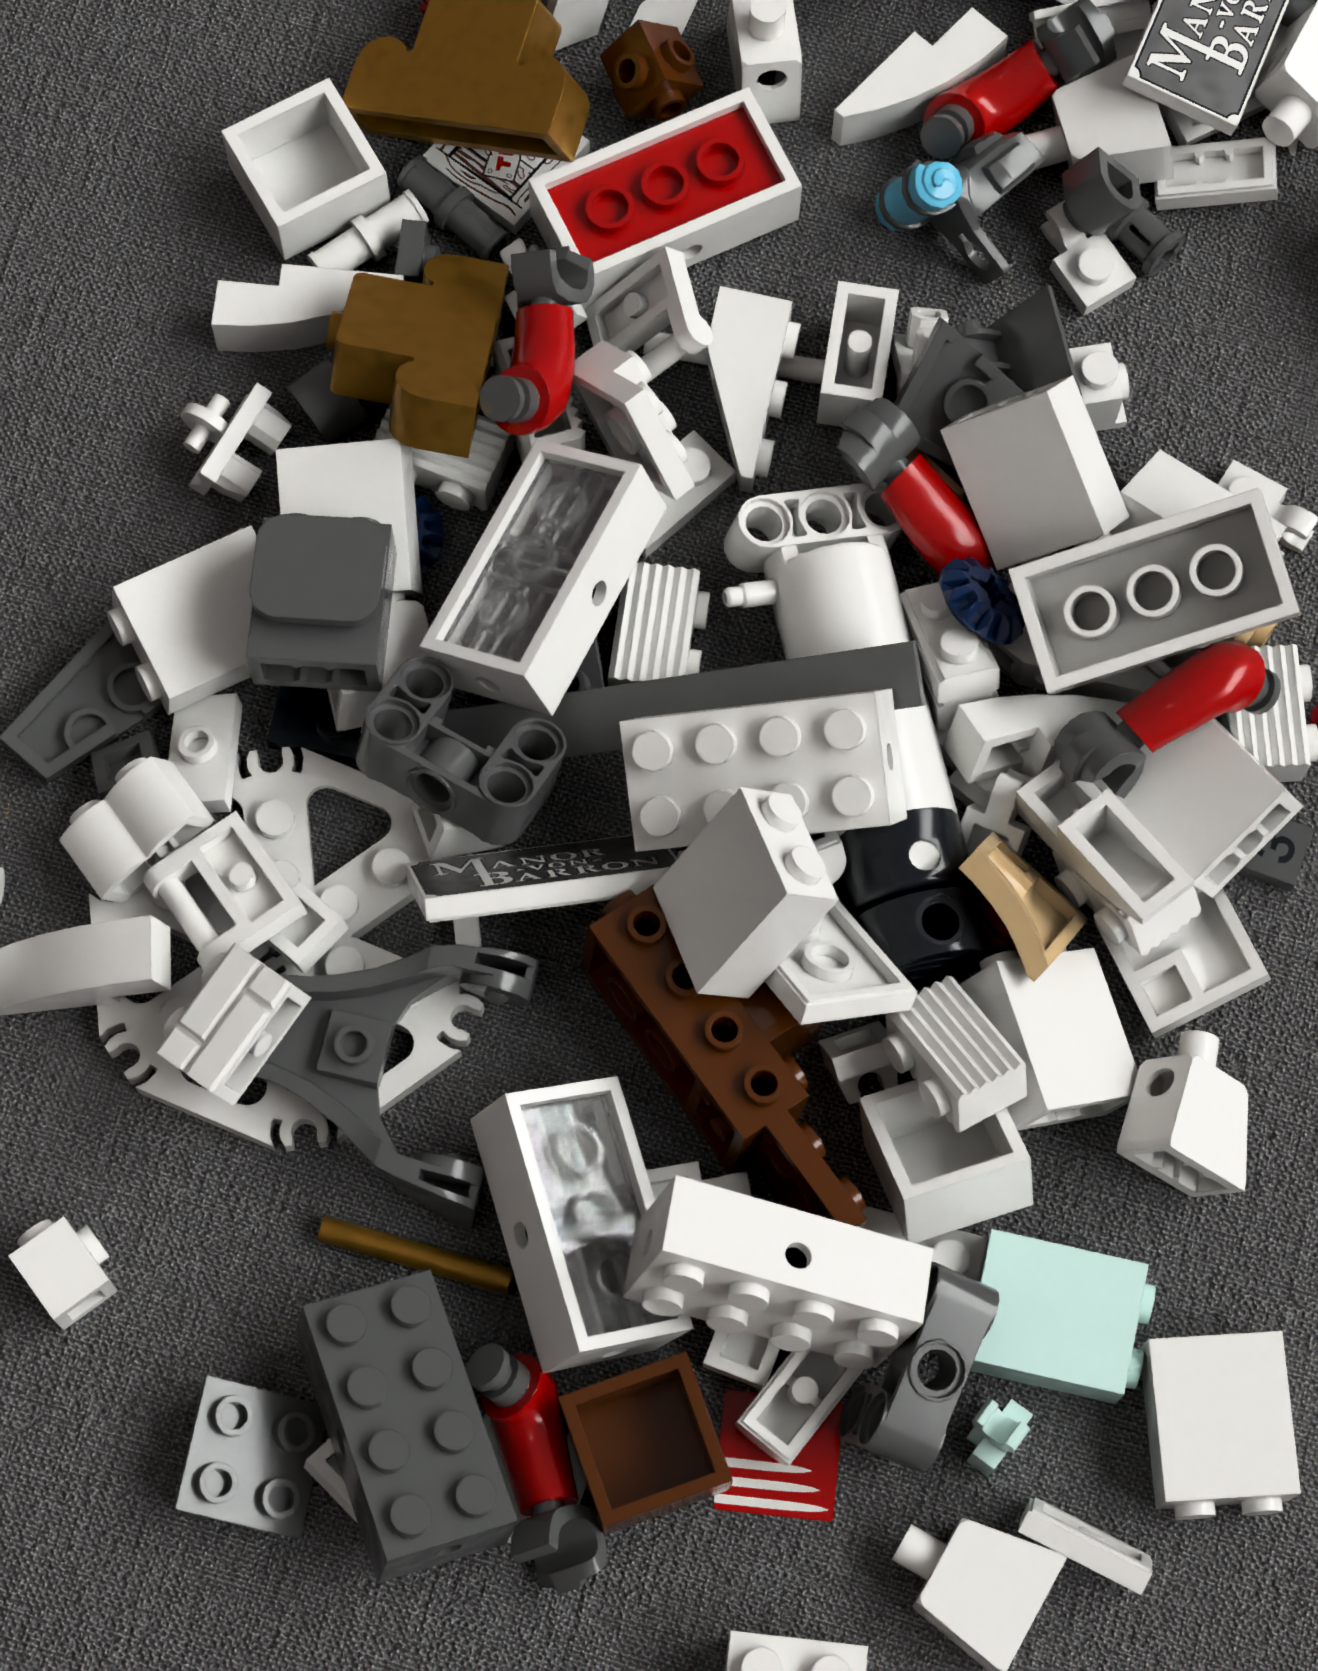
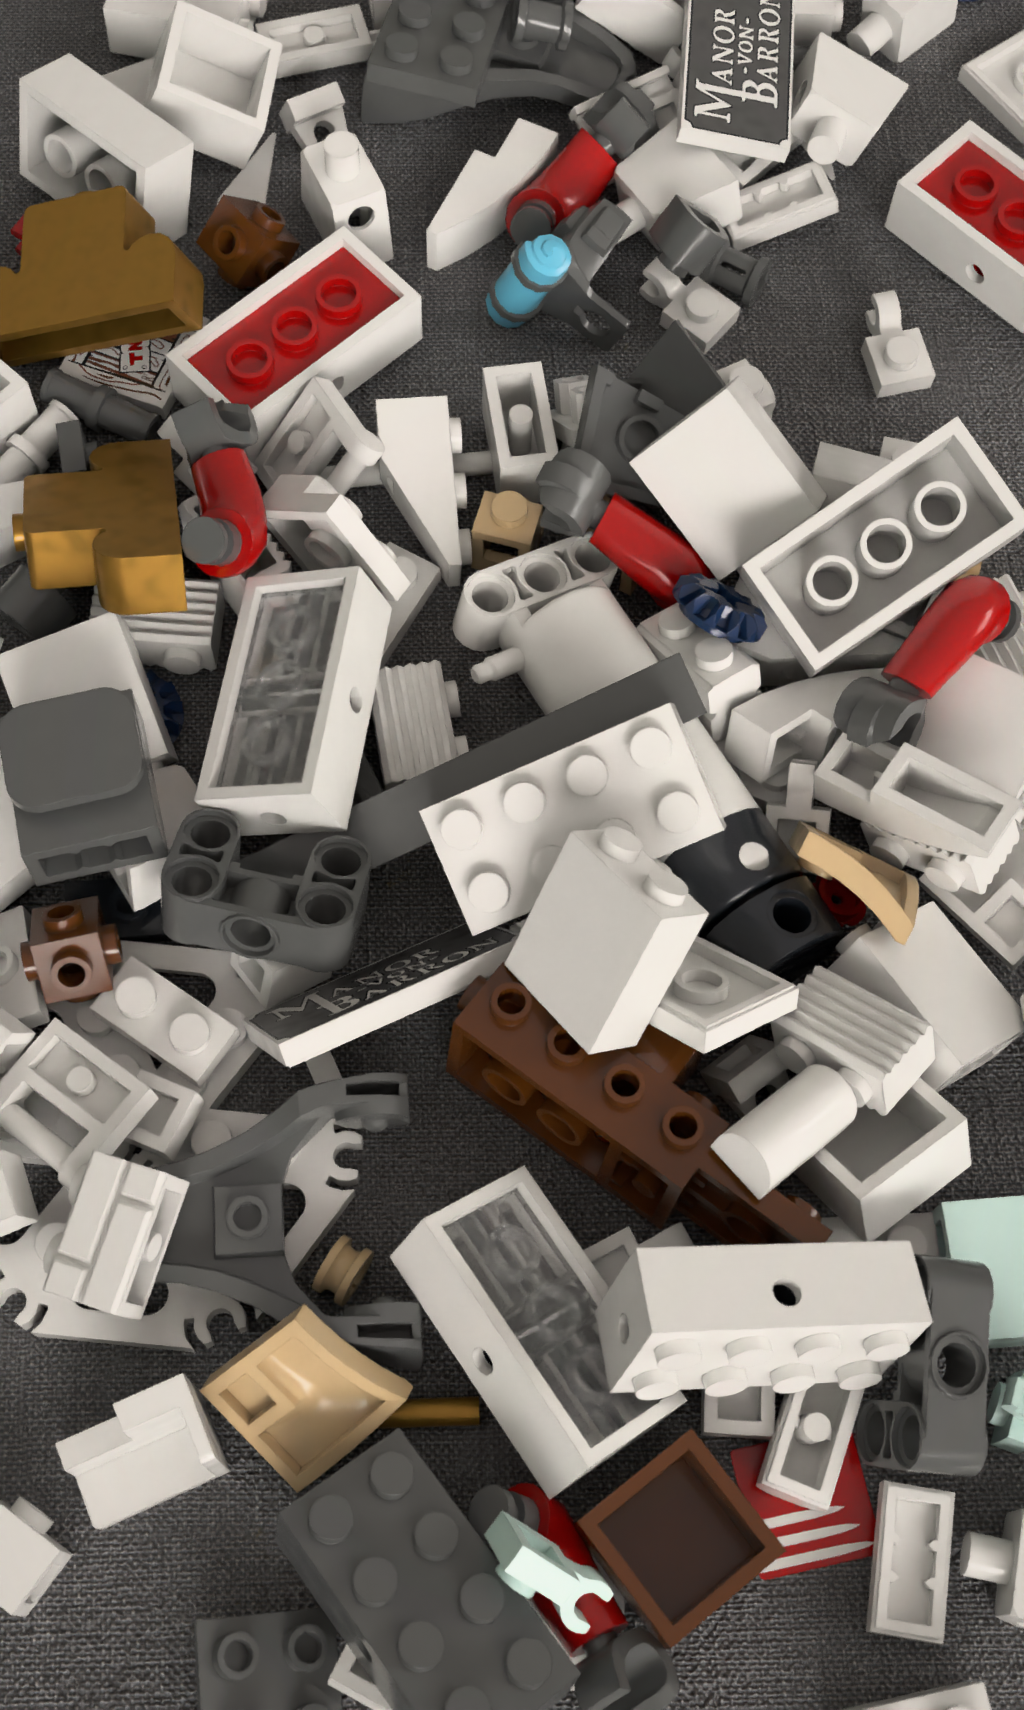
camera: 20 degrees left, 5 degrees down
(205, 1224) = (146, 1453): none -> white panel
(268, 752) = (71, 950): none -> reddish brown brick
(335, 843) = (165, 1022): none -> white plate
(357, 1217) = (304, 1396): none -> tan plate
(427, 1119) = (342, 1270): none -> tan bush
(508, 1418) = (537, 1564): none -> light aqua plate
(810, 447) = (508, 521): none -> tan brick
(850, 1534) = (910, 1562): none -> white plate
(860, 1116) = (787, 1128): none -> white brick
(1281, 375) = (894, 356): none -> white plate

